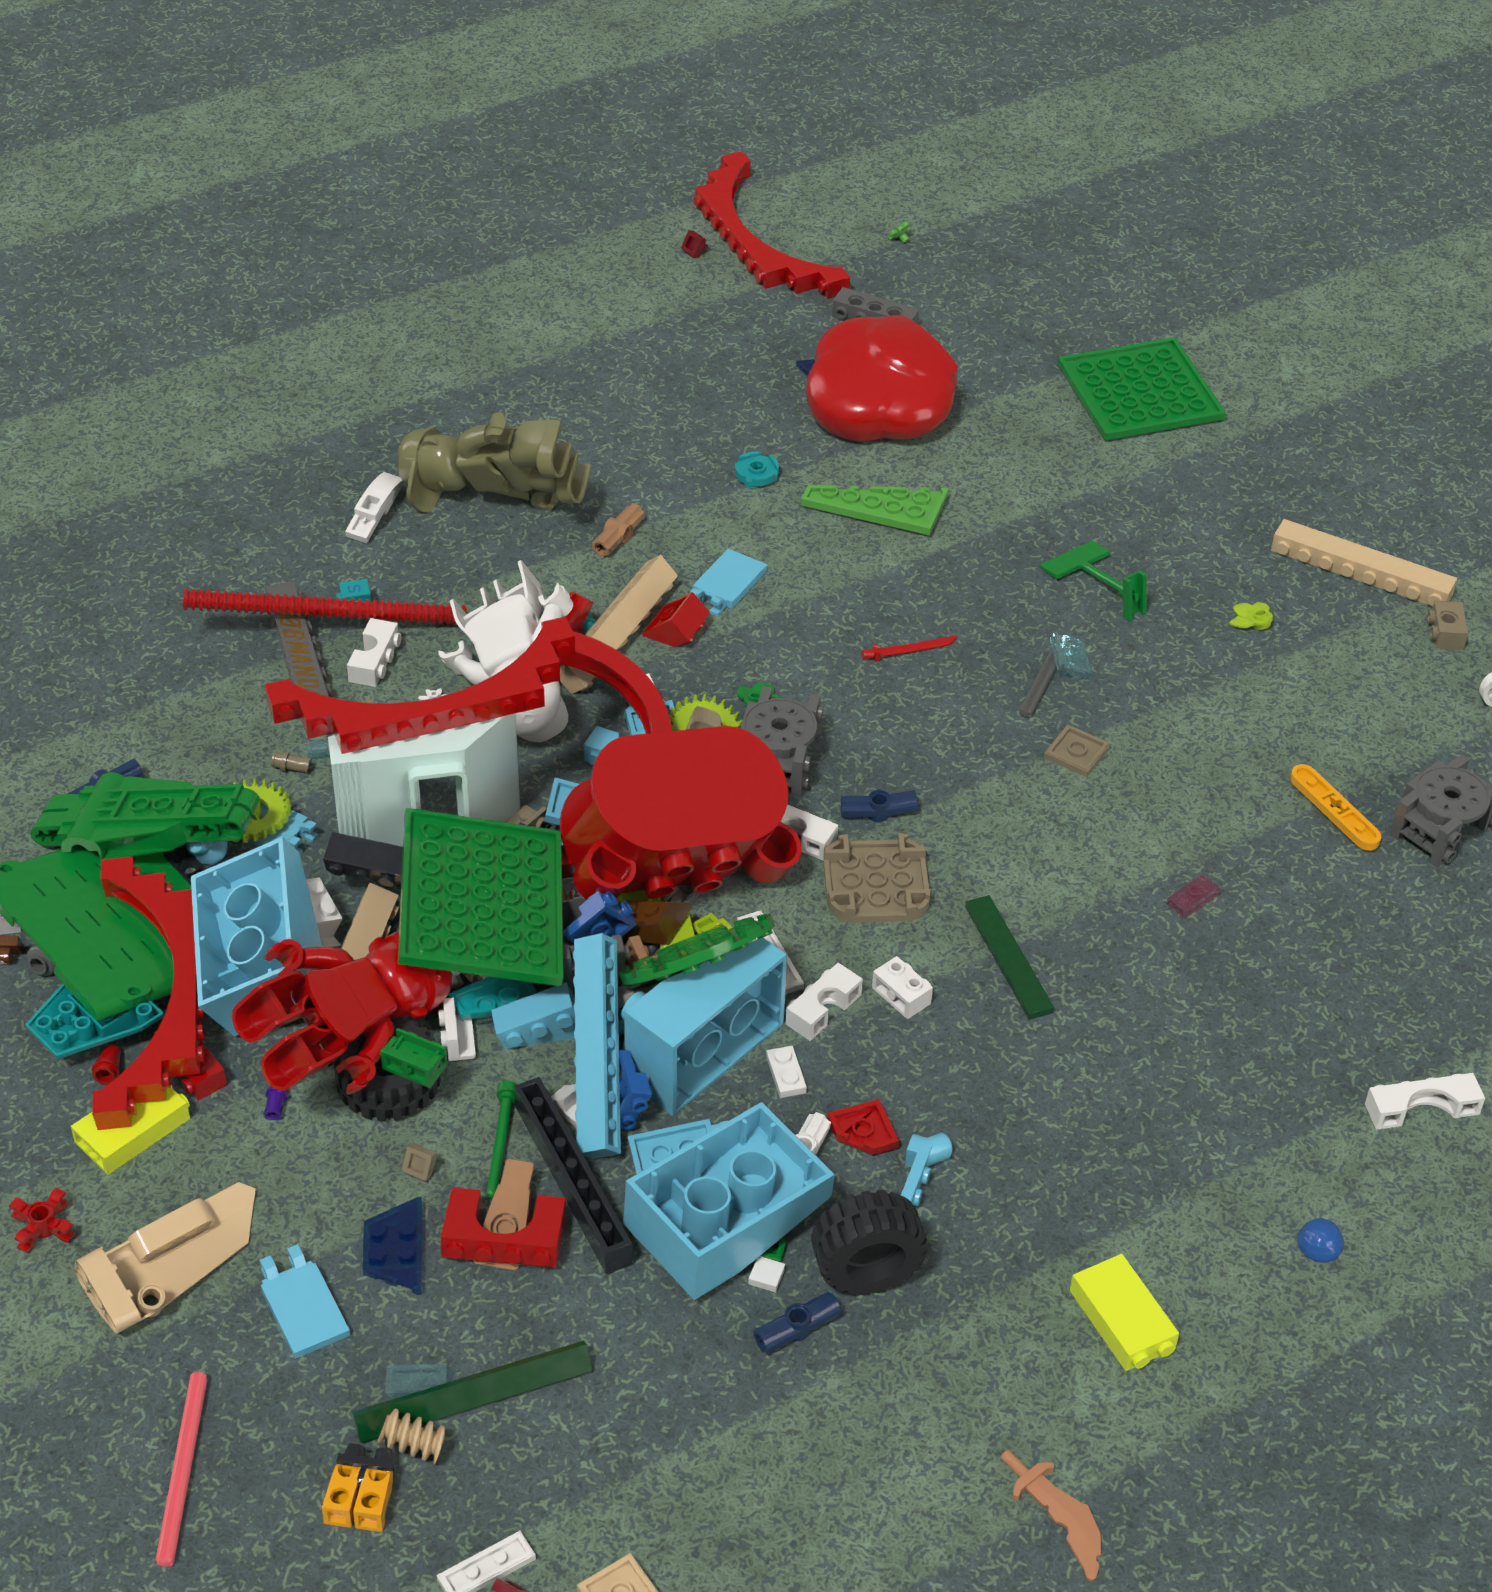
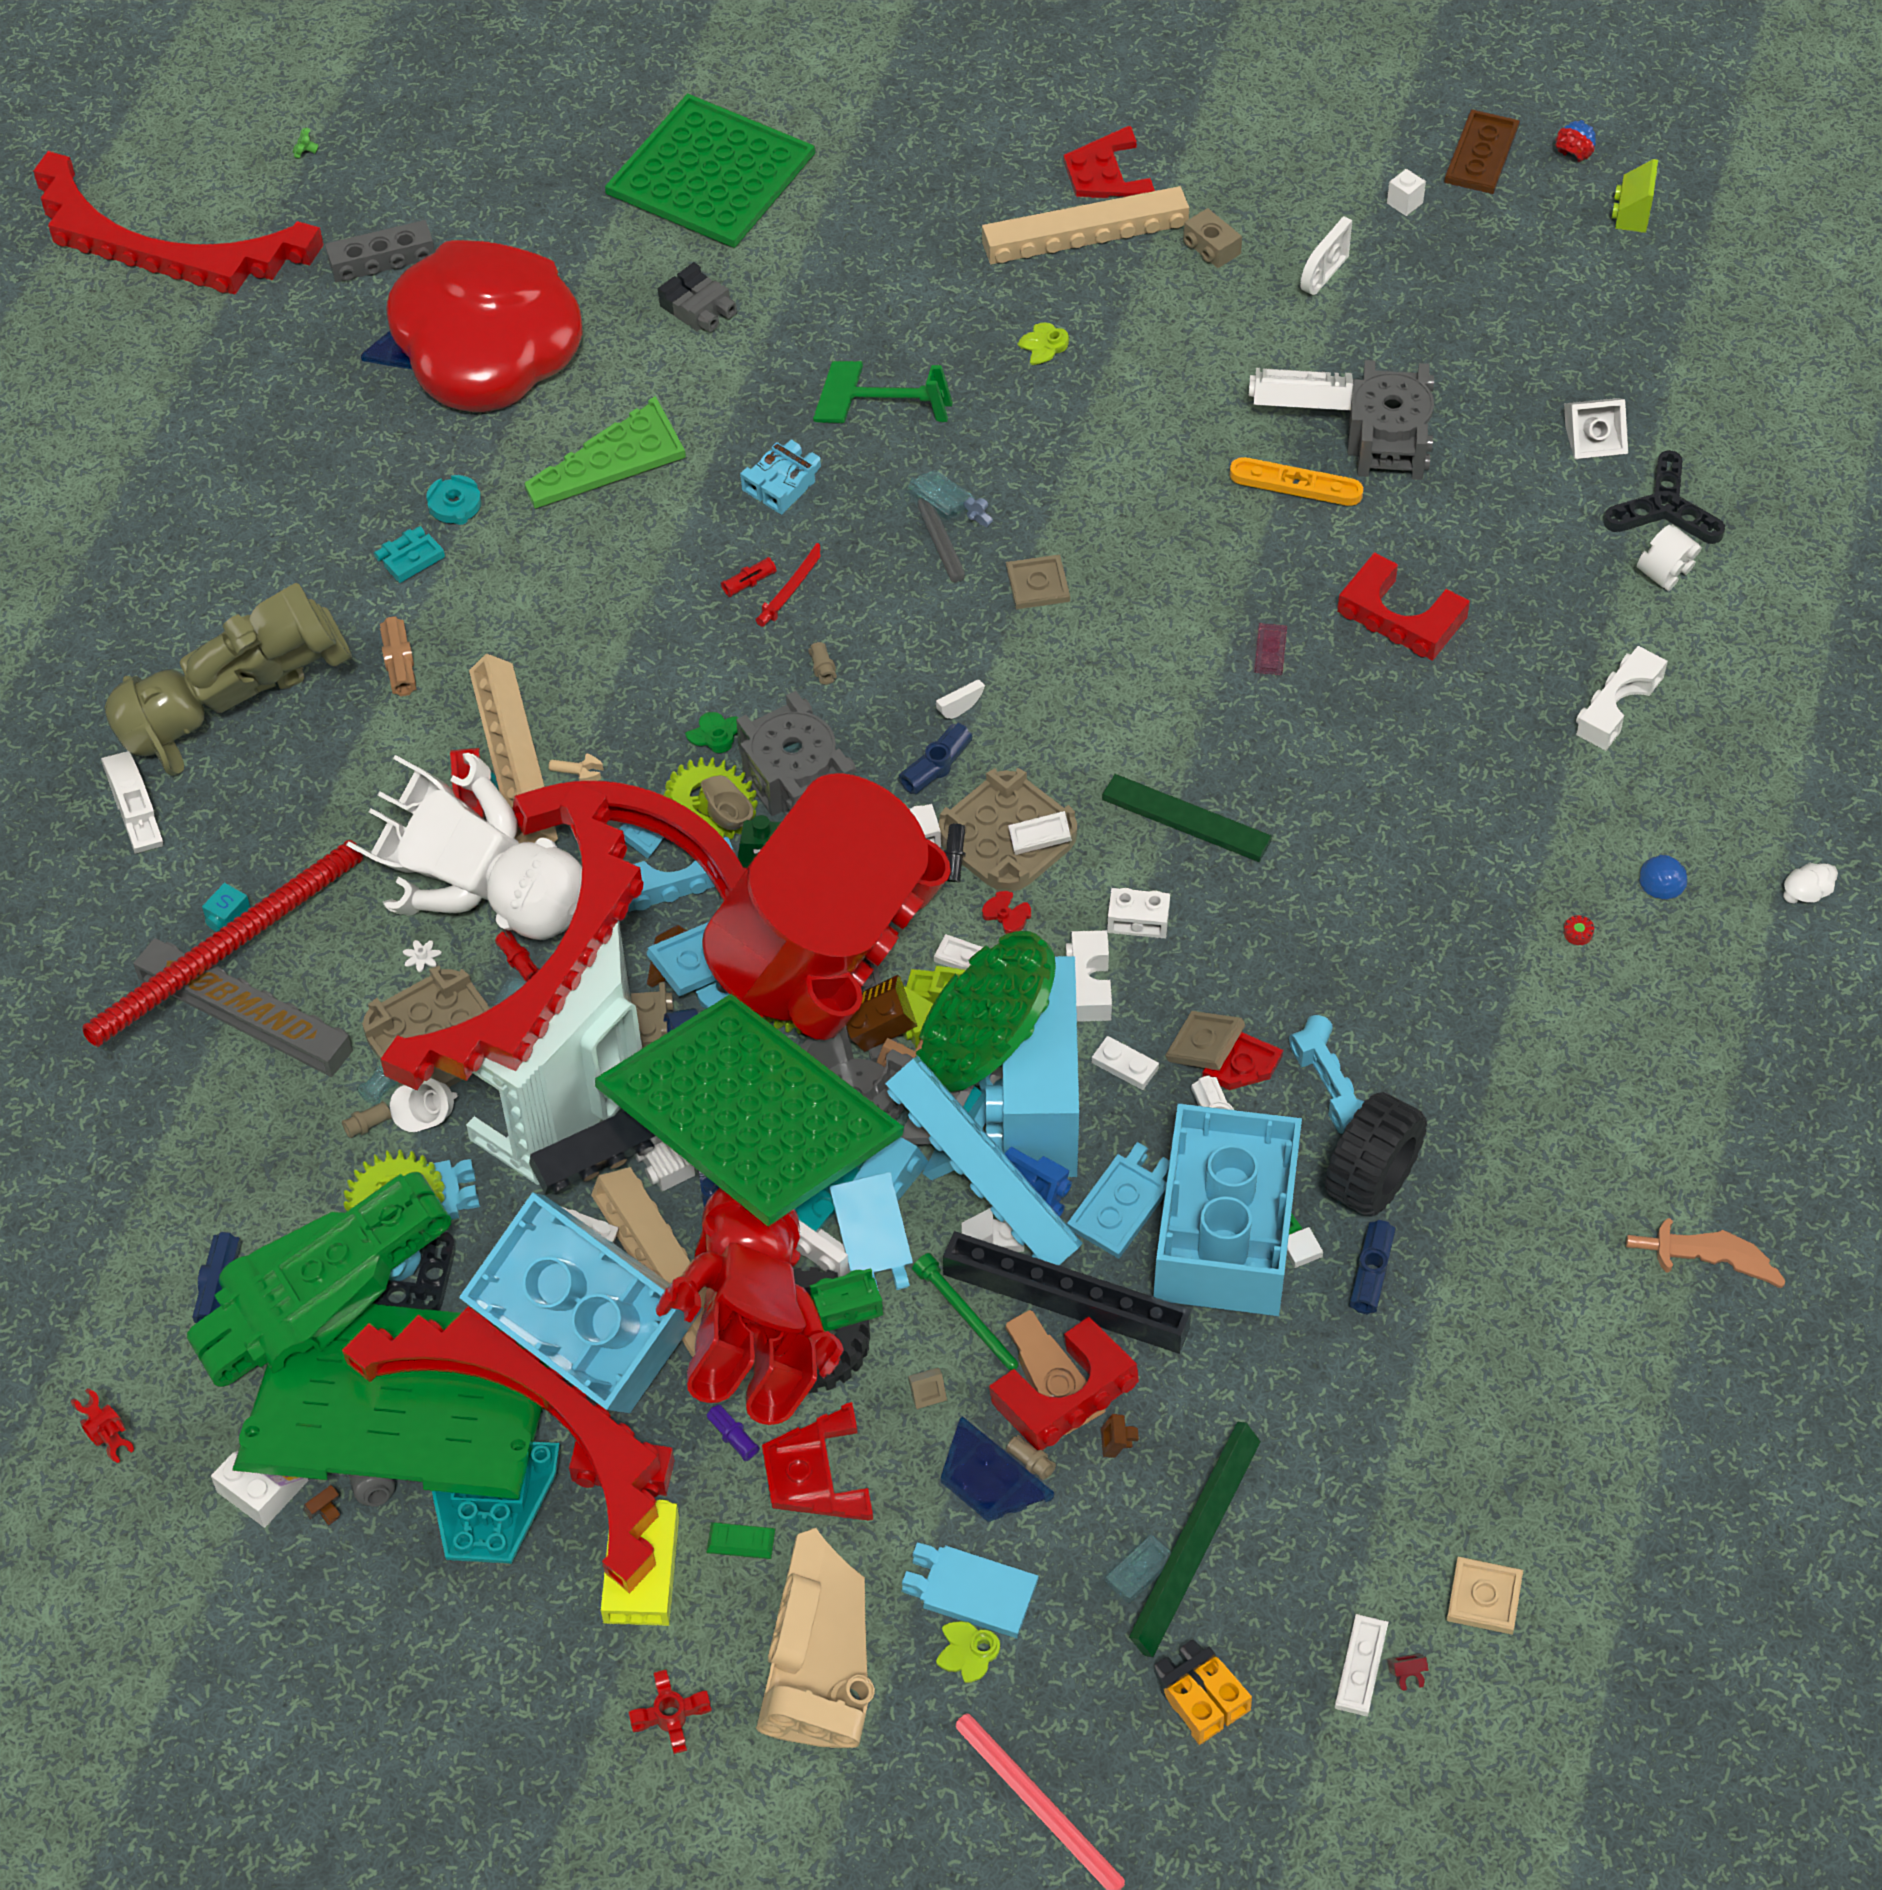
camera: 40 degrees left, 10 degrees up
(107, 1065) = (553, 1532): red cone -> none
(206, 1161) = (741, 1540): none -> green tile
(249, 1339) = (963, 1651): none -> lime plate
(289, 1146) = (801, 1472): none -> red wing
(320, 776) = (421, 1108): none -> white piece
(379, 642) = (306, 933): white arch -> none
(412, 1435) = (1197, 1613): tan piece -> none
(432, 1260) = (1035, 1460): none -> dark tan pin
(493, 1041) = (872, 1226): none -> medium azure tile
(501, 1288) = (1117, 1436): none -> reddish brown tile
(601, 915) = (858, 1044): blue plate -> none
(651, 663) = (580, 769): none -> tan bar
(677, 621) = (560, 710): red slope -> none
(693, 481) = (412, 558): none -> teal plate
(694, 244) = (113, 291): dark red tile -> none
(728, 580) = (556, 635): medium azure tile -> none
(815, 932) = (998, 909): none -> red piece
(820, 864) = (955, 851): none -> black axle
(852, 1095) = (1205, 1040): none -> dark tan tile
(871, 704) = (823, 665): none -> dark tan pin
(886, 625) = (733, 584): none -> red pin
(890, 891) = (1040, 833): none -> white tile
(934, 782) = (960, 700): none -> white tile
(976, 581) = (781, 476): none -> medium azure hips
(1044, 454) = (696, 299): none -> dark grey hips
(1082, 682) = (976, 511): none -> sand blue piece
(1124, 1312) = (1595, 1054): neon yellow brick -> none
(1212, 1227) = (1578, 930): none -> red tile
(1319, 959) = (1422, 633): none -> red arch
(1395, 745) = (1301, 389): none -> white door
(1413, 539) = (1095, 169): none -> red wing
(1436, 1328) = (1810, 883): none -> white arm

